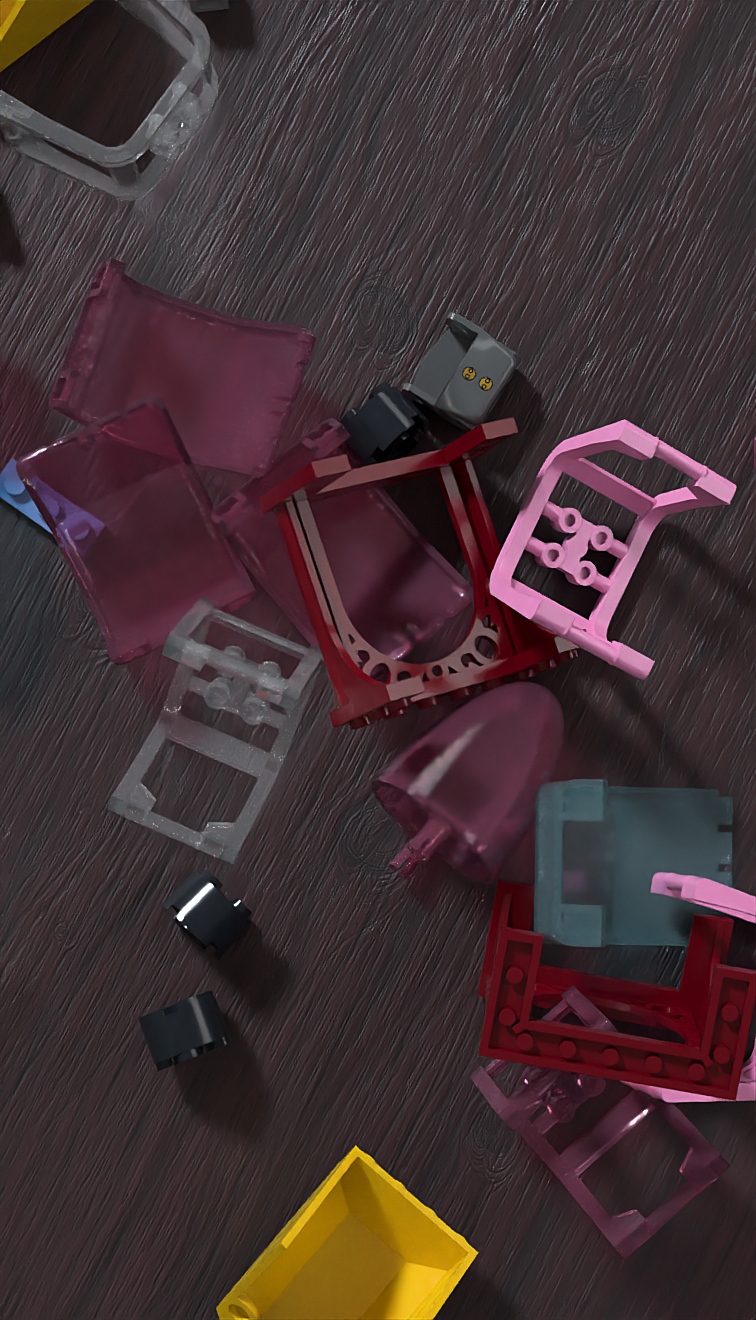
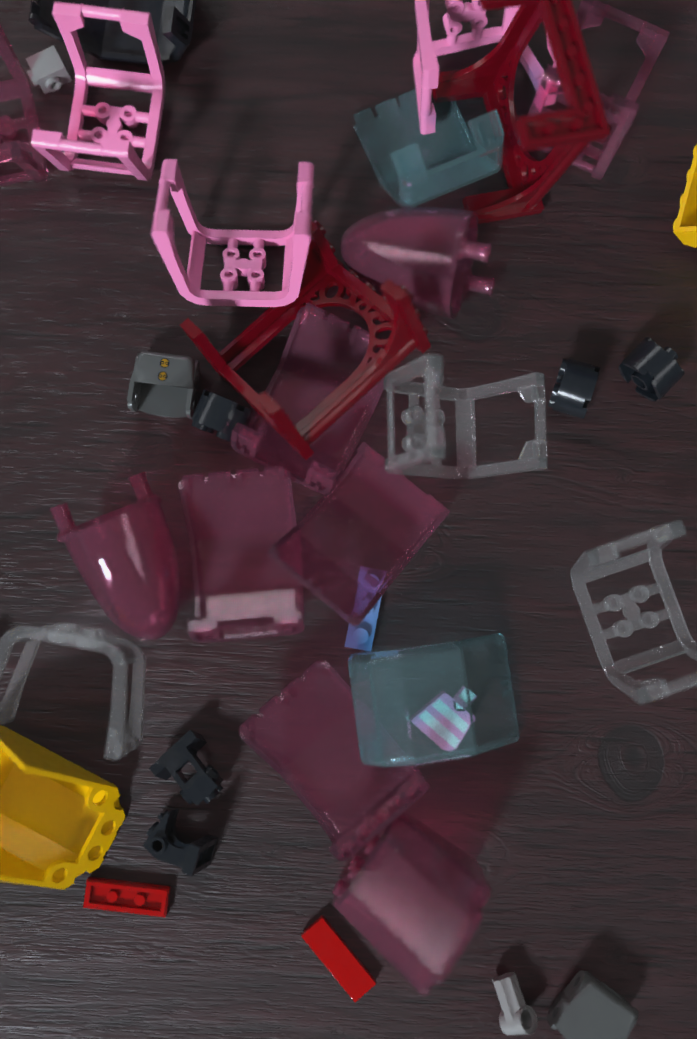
camera: 115 degrees left, 0 degrees up
(245, 224) = (128, 562): none -> clear pink windscreen

